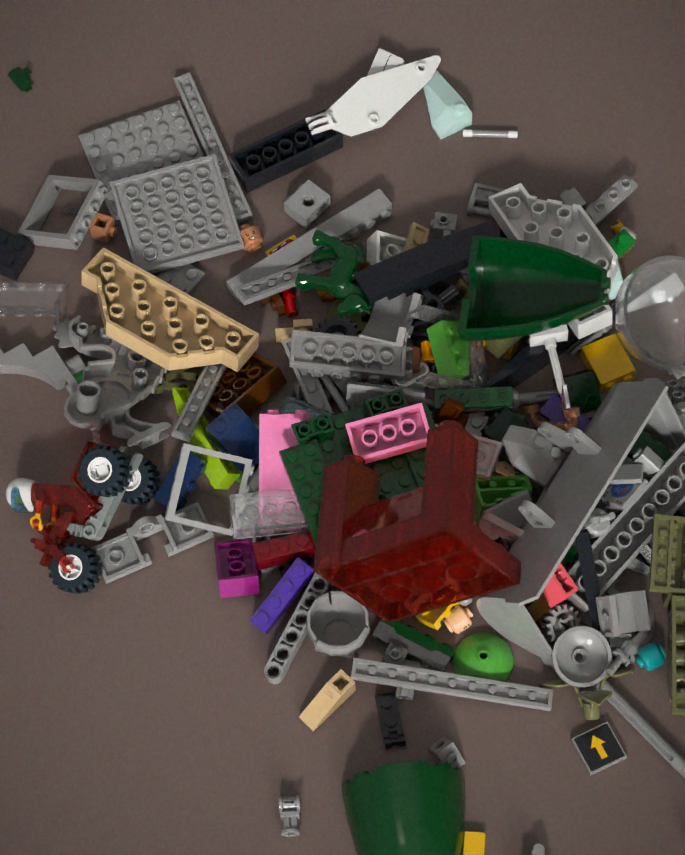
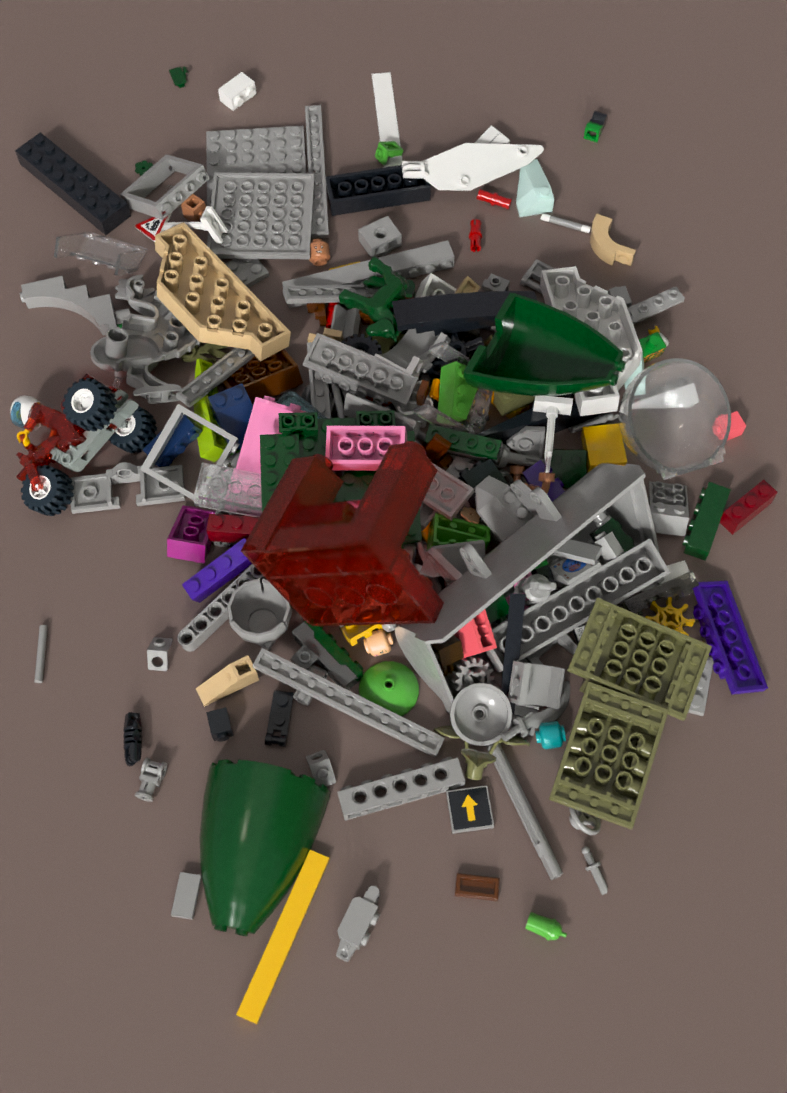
camera: 15 degrees right, 0 degrees up
(26, 195) = (142, 167): none -> dark green plant
(68, 259) = (209, 222): none -> white piece
(94, 80) = (237, 91): none -> white brick
(133, 730) = (41, 654): none -> light grey bar
(248, 689) = (159, 648): none -> light grey bracket
(257, 782) = (132, 738): none -> black hinge
(264, 70) = (386, 113): none -> white sticker
(278, 104) = (386, 150): none -> bright green bracket
(307, 305) = (346, 321): none -> light grey panel
(336, 743) = (220, 724): none -> black brick
(403, 173) = (475, 235): none -> red pin
(408, 128) = (494, 199): none -> red pin
(485, 17) = (596, 125): none -> leg
(489, 781) = (393, 797): none -> light grey brick
(533, 377) = (528, 441): none -> light grey plate
(539, 149) = (604, 246): none -> tan arch
(630, 816) = (477, 887): none -> reddish brown tile

